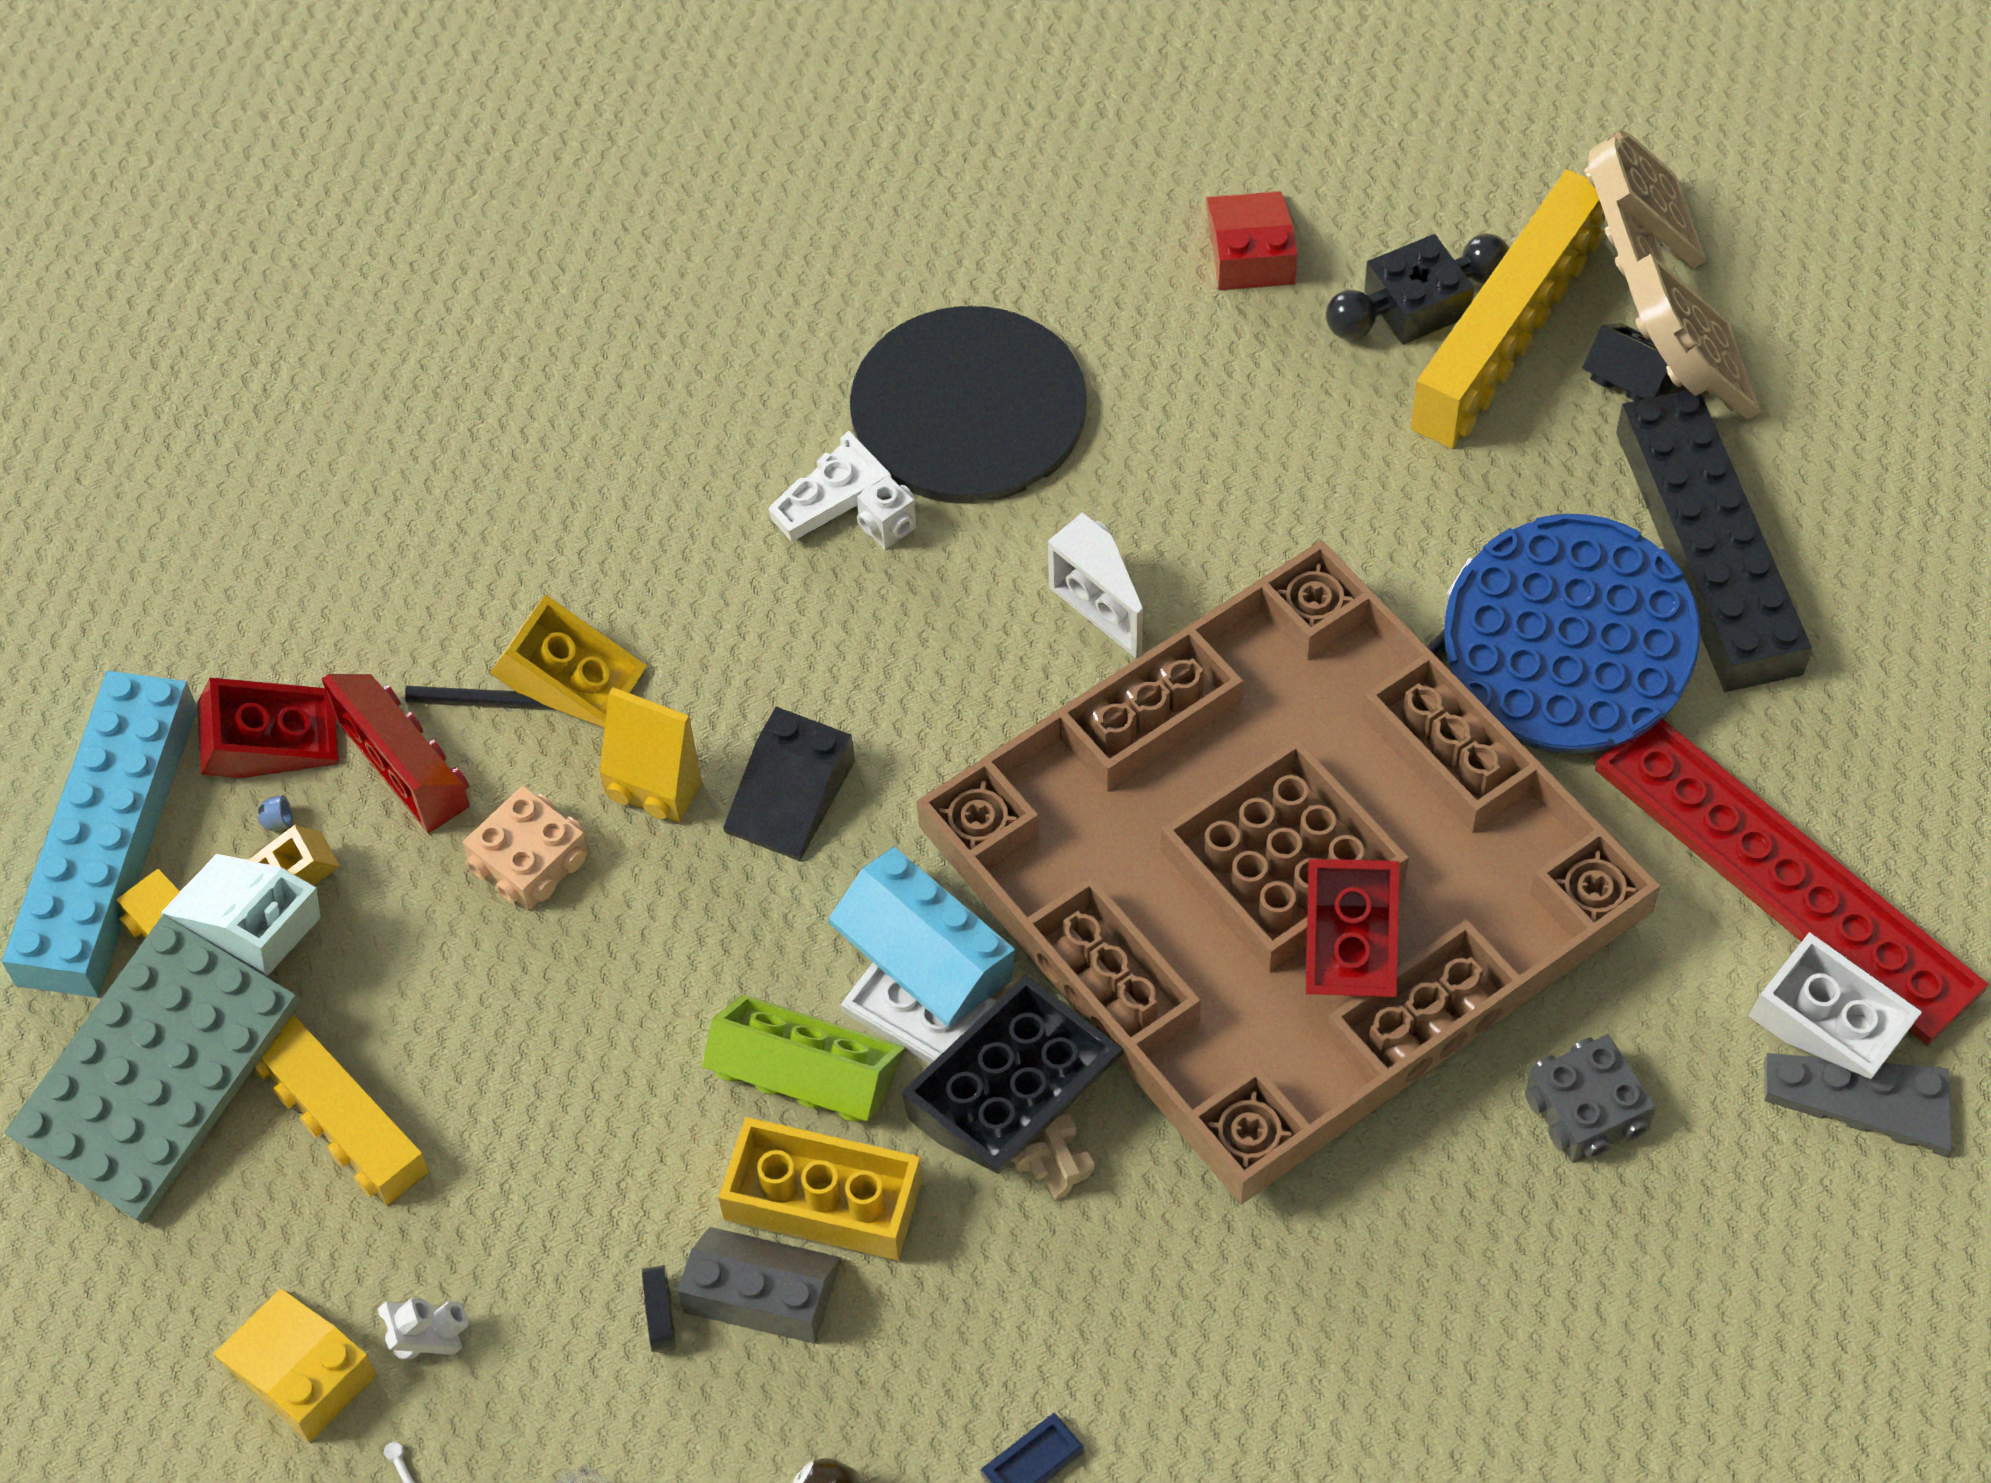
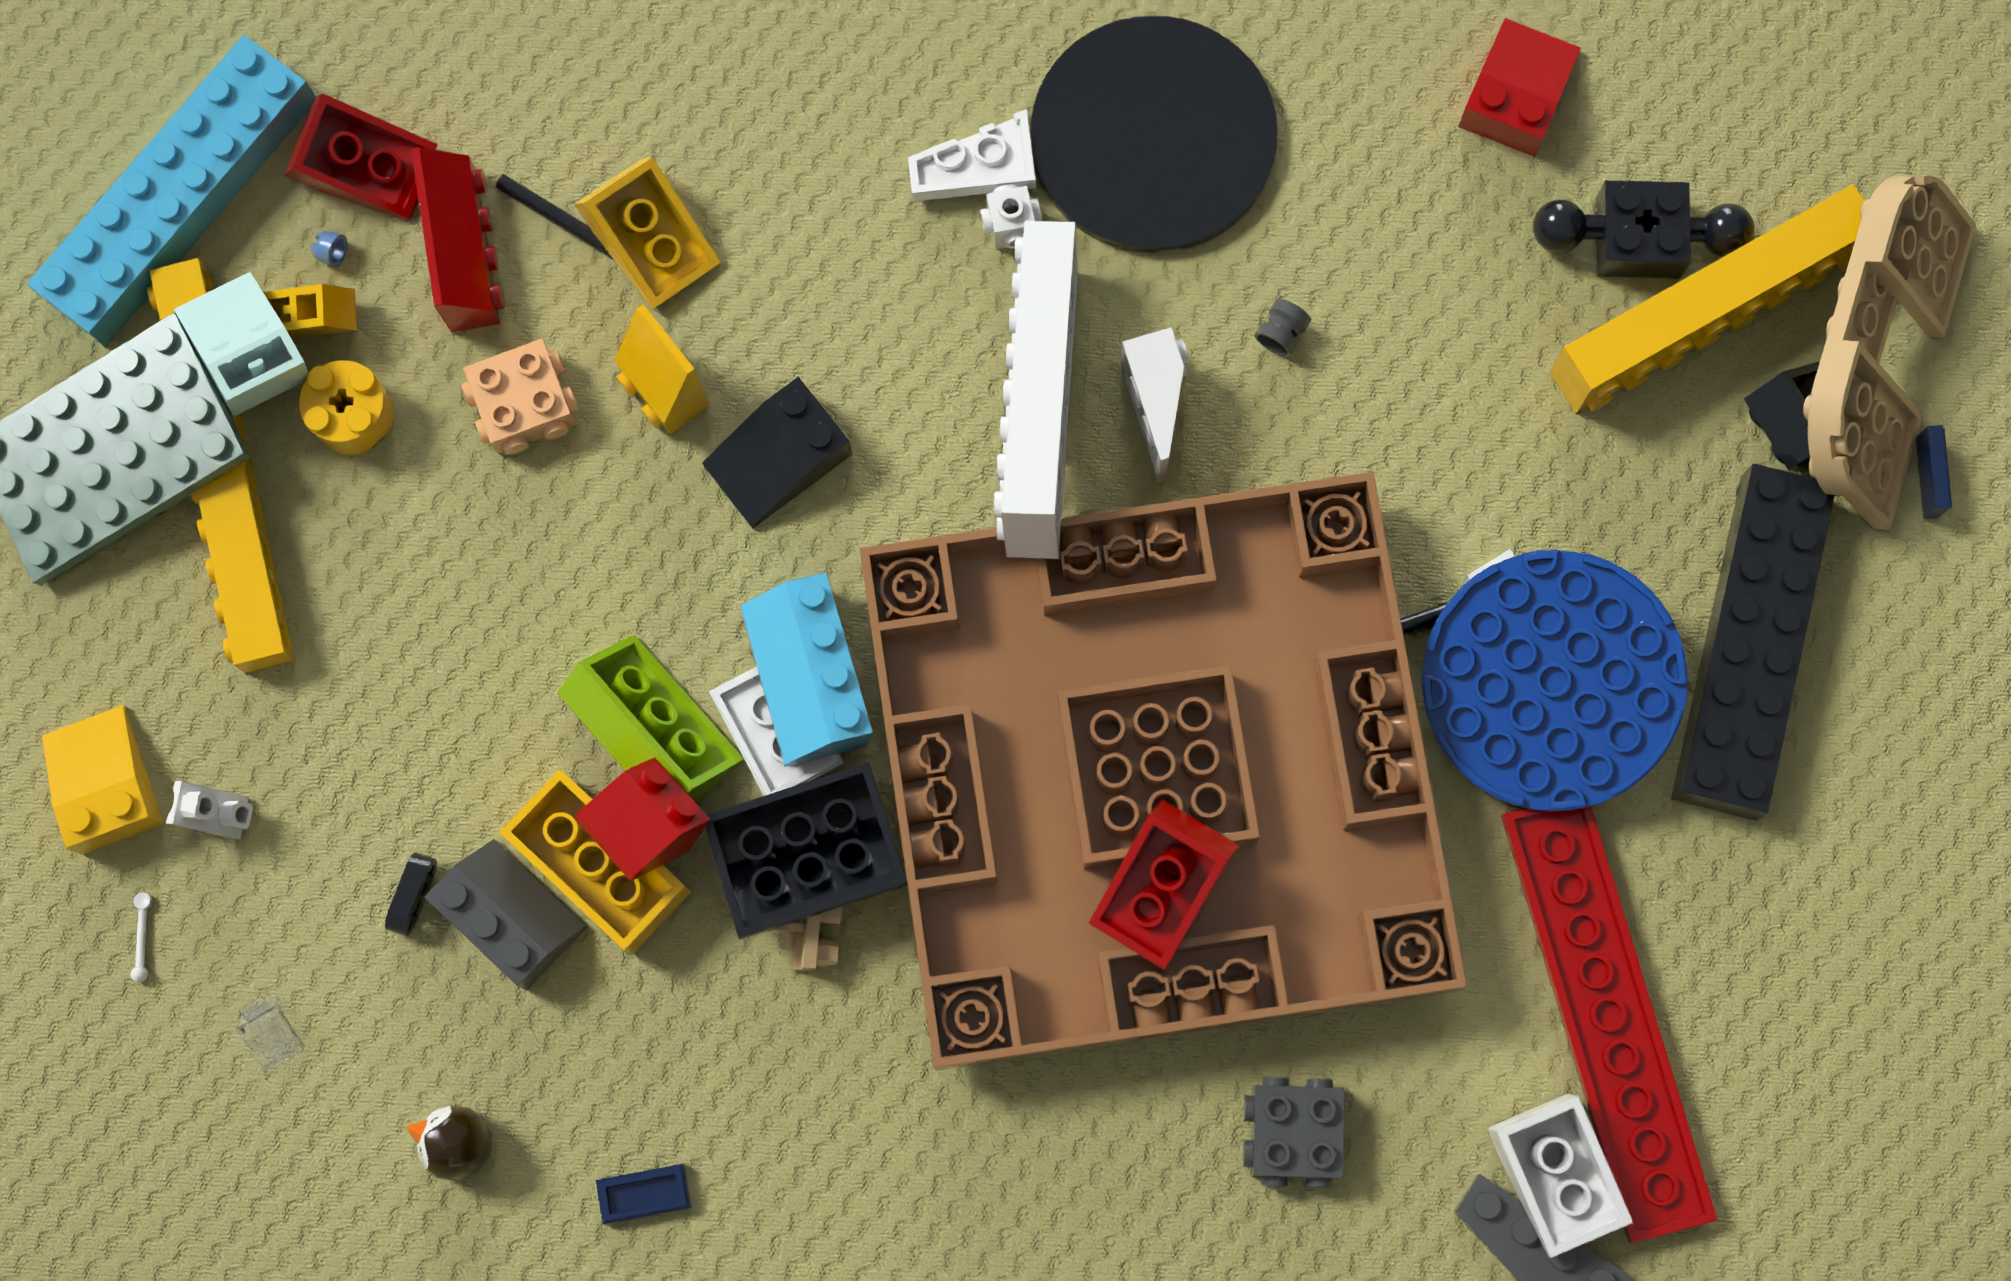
camera: 30 degrees right, 20 degrees up
(366, 929) = (334, 387): none -> yellow brick
(851, 1112) = (643, 819): none -> red slope
(1001, 608) = (1037, 391): none -> white brick
(1170, 490) = (1283, 326): none -> dark grey wheel
(1766, 354) = (1933, 472): none -> dark blue tile

